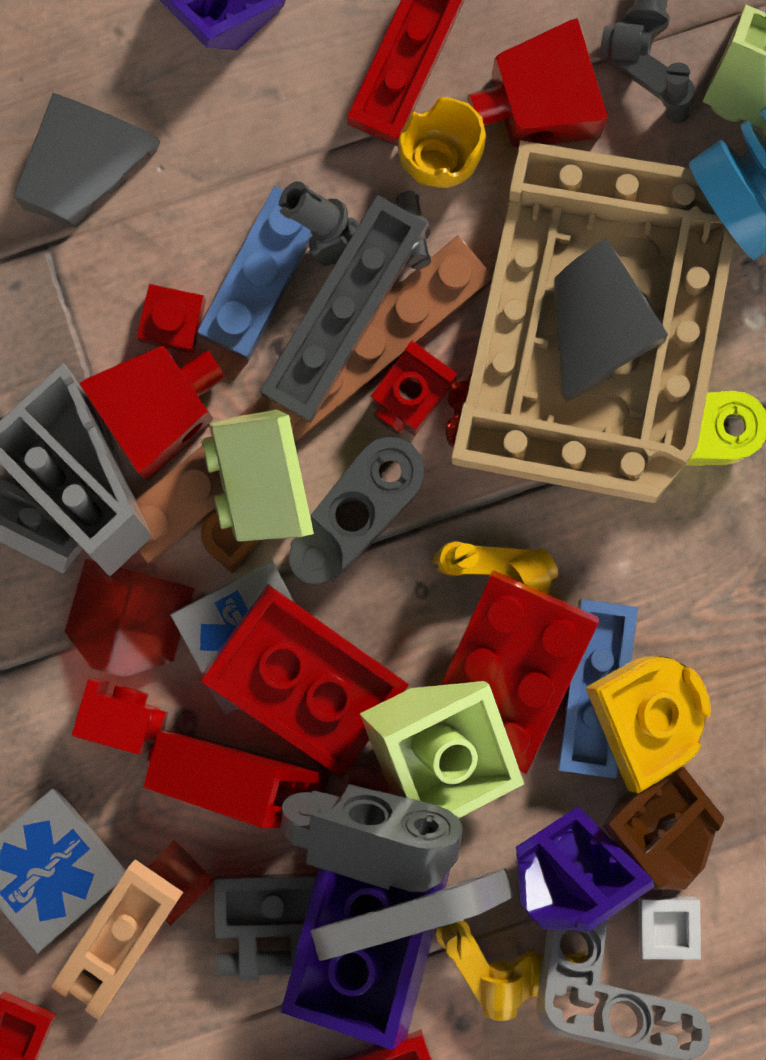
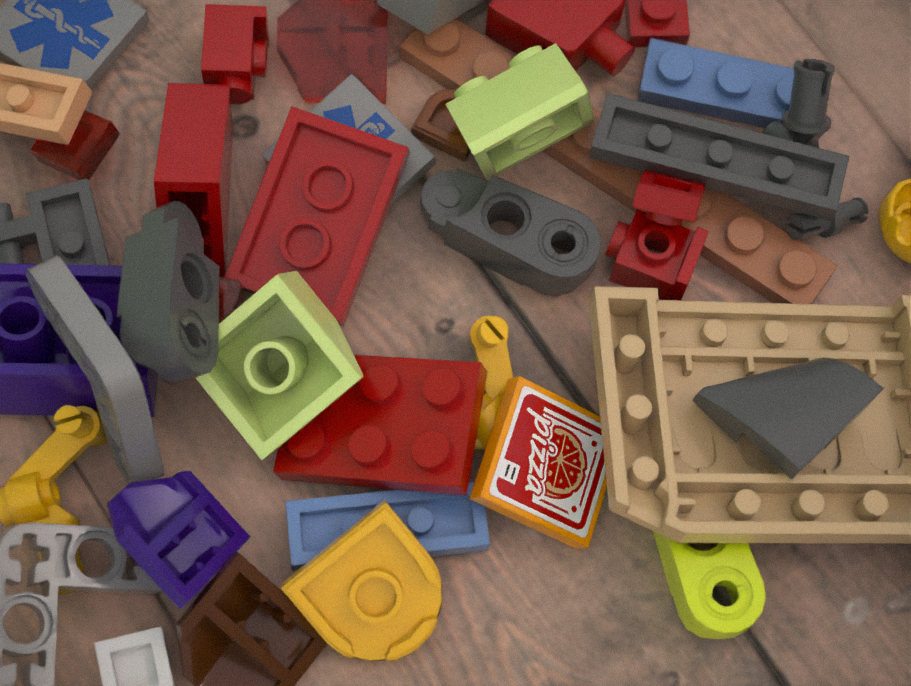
camera: 70 degrees right, 15 degrees down
(375, 365) = (668, 198): none -> red plate
(580, 543) = (544, 464): none -> tile

